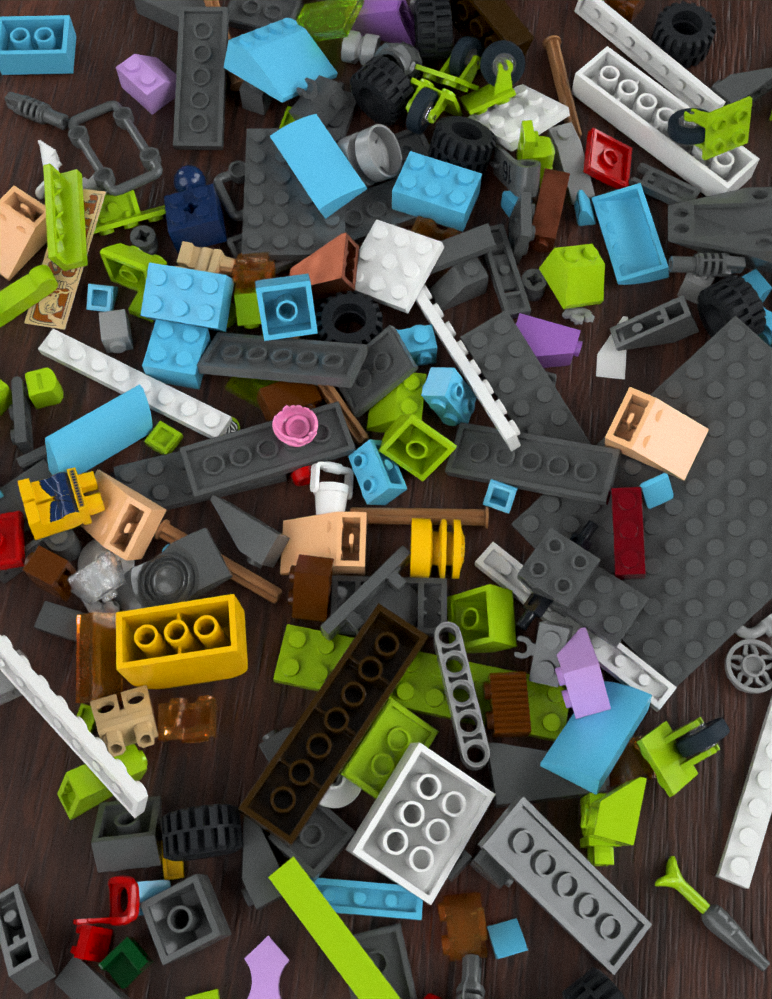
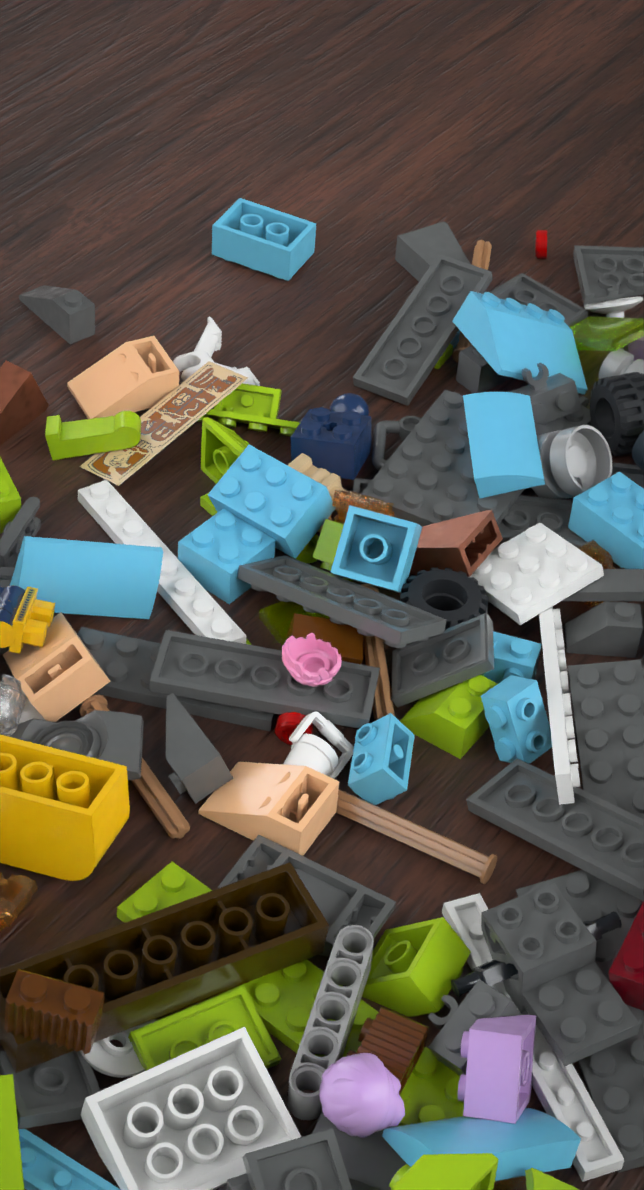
camera: 25 degrees right, 25 degrees down
(35, 110) = (225, 294): dark grey hinge -> none
(43, 388) = (58, 520): lime piece -> none
(65, 218) = (190, 385): lime fence -> none
(101, 297) = (179, 476): medium azure slope -> none
(104, 176) = (256, 368): dark grey bar -> none
(115, 331) = (172, 508): light grey brick -> none
(138, 238) = (263, 439): dark grey wheel -> none
(147, 81) = (361, 313): lavender slope -> none
(163, 438) = (153, 626): lime tile -> none
(304, 813) = (53, 1011): none -> reddish brown brick
(311, 587) = (223, 828): reddish brown brick -> none
(348, 612) = (309, 857): dark grey hinge -> none
(415, 446) = (443, 745): lime slope -> none
(436, 548) = (400, 859): yellow wheel -> none
(500, 496) = (519, 850): medium azure slope -> none
(516, 749) = (361, 1095): none -> lavender hair

